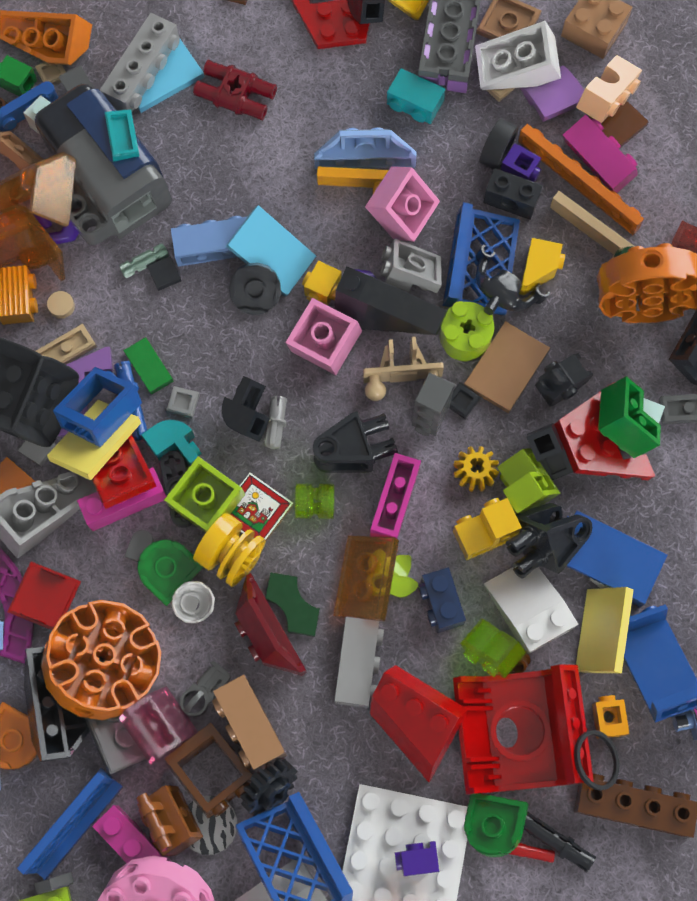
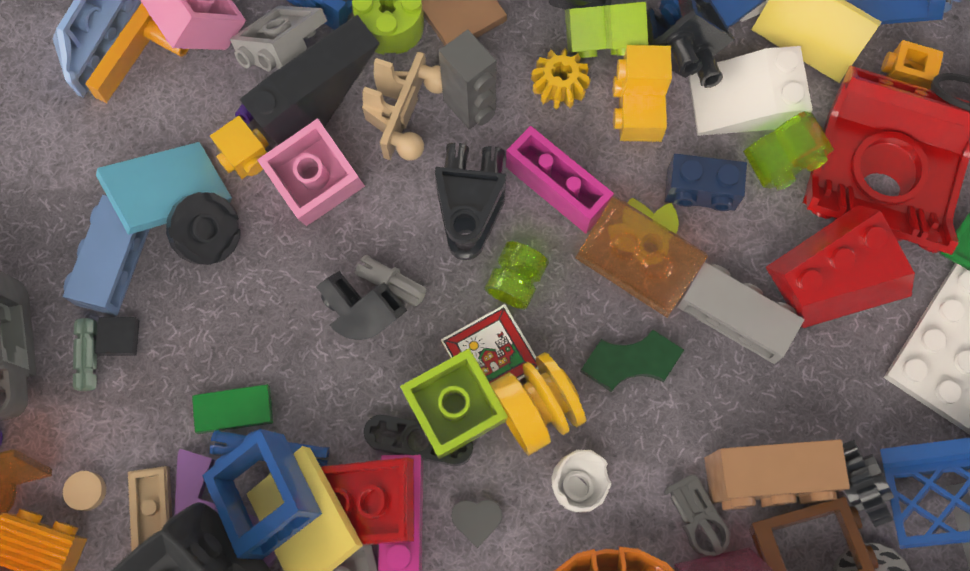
camera: 65 degrees left, 0 degrees up
(165, 568) = (519, 498): green tile -> none
(172, 436) = (345, 418): teal brick -> none
(183, 402) = (305, 385): light grey tile -> none
(265, 631) = (655, 406): dark red wedge -> none

